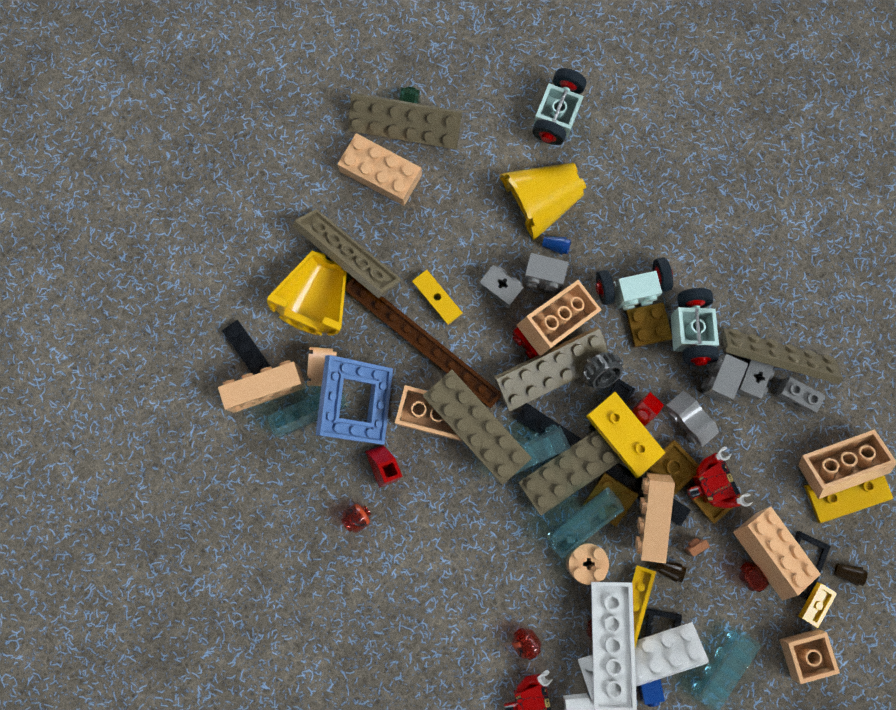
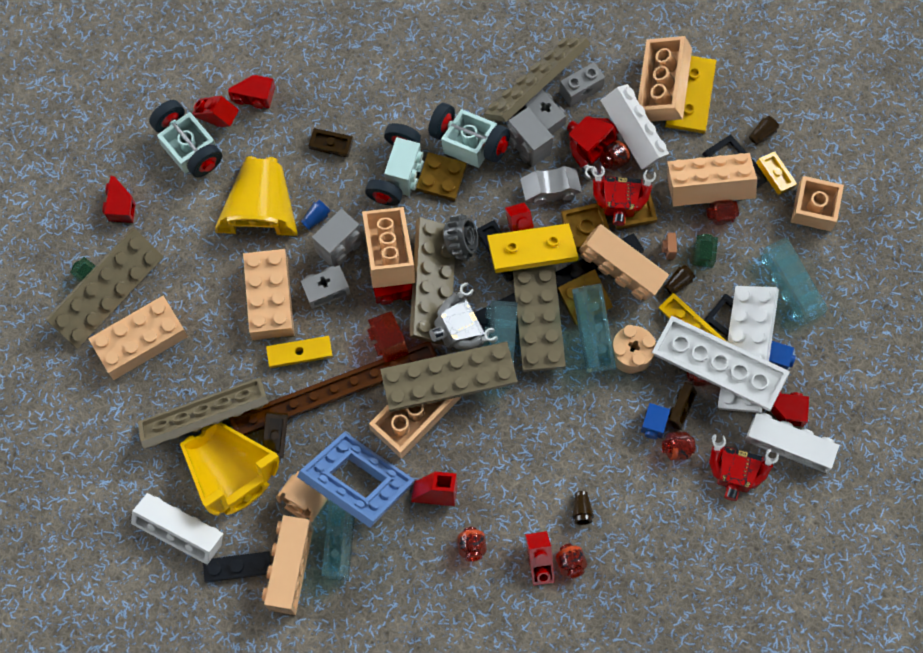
camera: 60 degrees left, 10 degrees down
(249, 286) = (177, 528): none -> white brick
(360, 317) = (275, 432): none -> dark brown plate
(374, 578) = (540, 558): none -> red slope
(384, 604) = (571, 561): none -> clear red head
(431, 591) = (582, 509): none -> dark brown cone
(469, 246) = (268, 294): none -> light nougat brick
(479, 90) = (119, 203): none -> red slope
(485, 359) = (387, 336): none -> clear red brick
(525, 411) = (459, 325): none -> light grey torso
(536, 613) = (655, 421): none -> blue brick
(570, 628) = (680, 411): none -> dark brown plate
(598, 116) = (215, 111): none -> red slope
(625, 220) = (330, 142): none -> dark brown plate
(633, 134) = (254, 91): none -> red slope
(710, 579) = (705, 250): none -> clear green brick
(751, 458) = (615, 155): none -> clear red head
(753, 431) = (589, 139): none -> red torso
(786, 461) = (634, 126): none -> white brick

